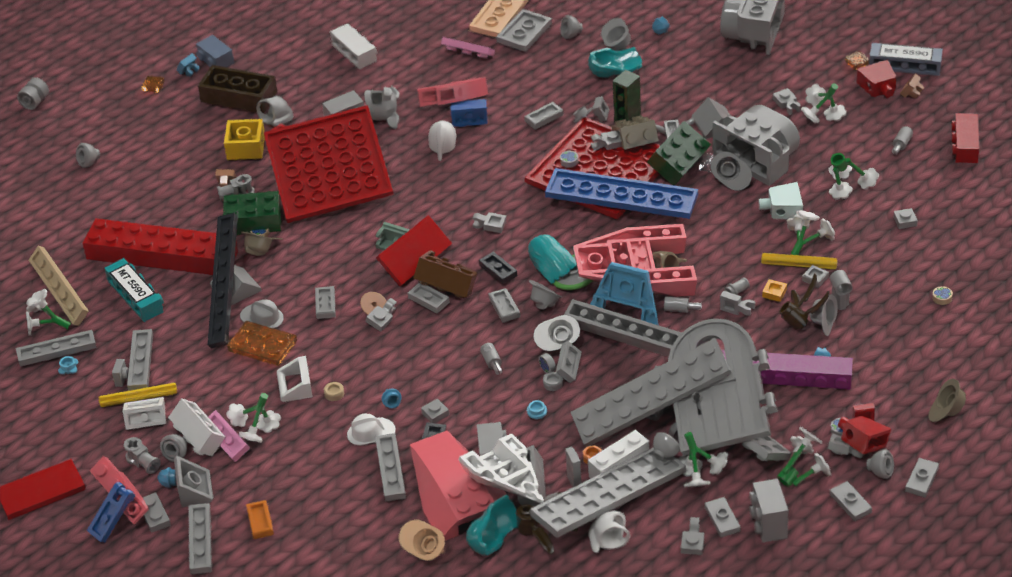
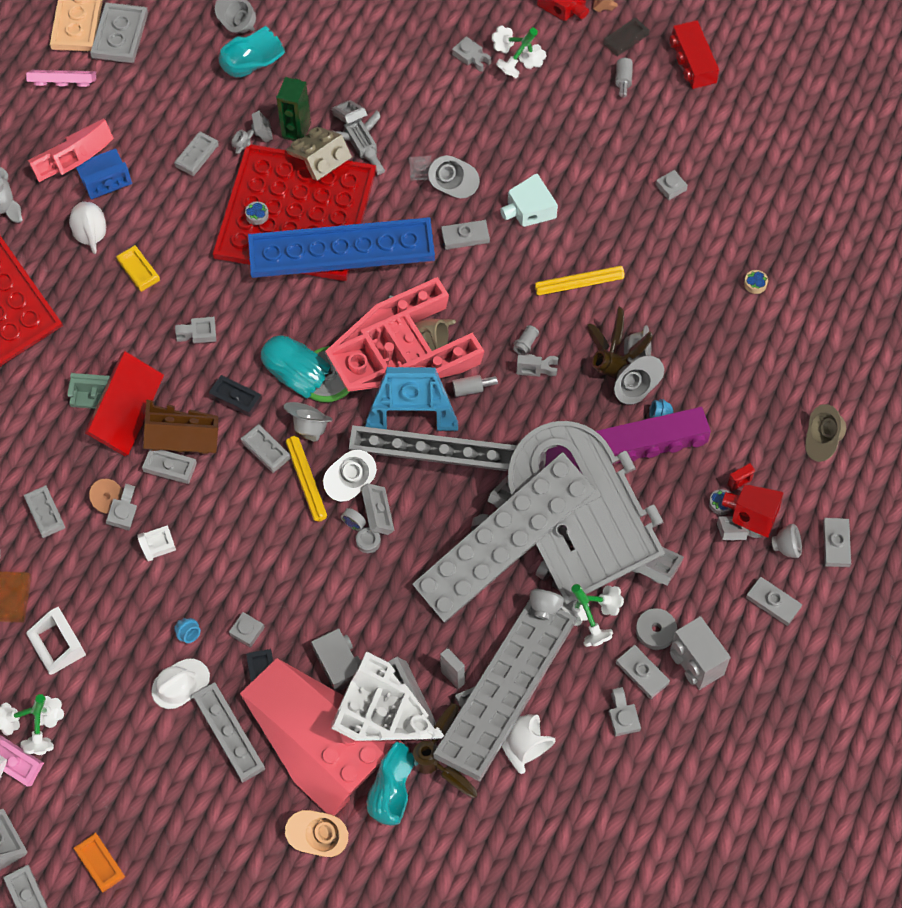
camera: 25 degrees left, 20 degrees up
(334, 391) = (110, 640): tan tile -> none
(395, 341) = (156, 543): none -> white tile
(466, 176) = (138, 268): none -> yellow tile
(491, 357) = (283, 530): light grey piece -> none
(525, 331) = (306, 479): none -> yellow axle
(536, 409) = (368, 590): medium azure plate -> none
(570, 27) = (174, 14): light grey brick -> none
(589, 452) = (460, 634): orange tile -> none
(609, 140) = (292, 171): light grey plate -> none
(617, 453) = (494, 630): white brick -> none
(671, 114) = (349, 111): none -> light grey plate
(679, 153) = (384, 170): brick -> none
(707, 114) = (399, 104): light grey slope -> none
(724, 212) = (465, 234): none -> light grey plate
(738, 491) = (653, 639): none -> light grey piece
(760, 140) = (470, 126): light grey brick -> none
(774, 290) = (570, 331): light orange plate -> none
(800, 223) = (576, 225): white plant -> none
(802, 445) = (695, 590): plant -> none
(810, 328) = (638, 379): none -> light grey piece
(821, 274) = (605, 296): light grey tile -> none
(840, 169) = (580, 138): white plant -> none
(841, 288) = (649, 312): light grey piece -> none
(917, 116) = (626, 36): none -> clear smoke tile

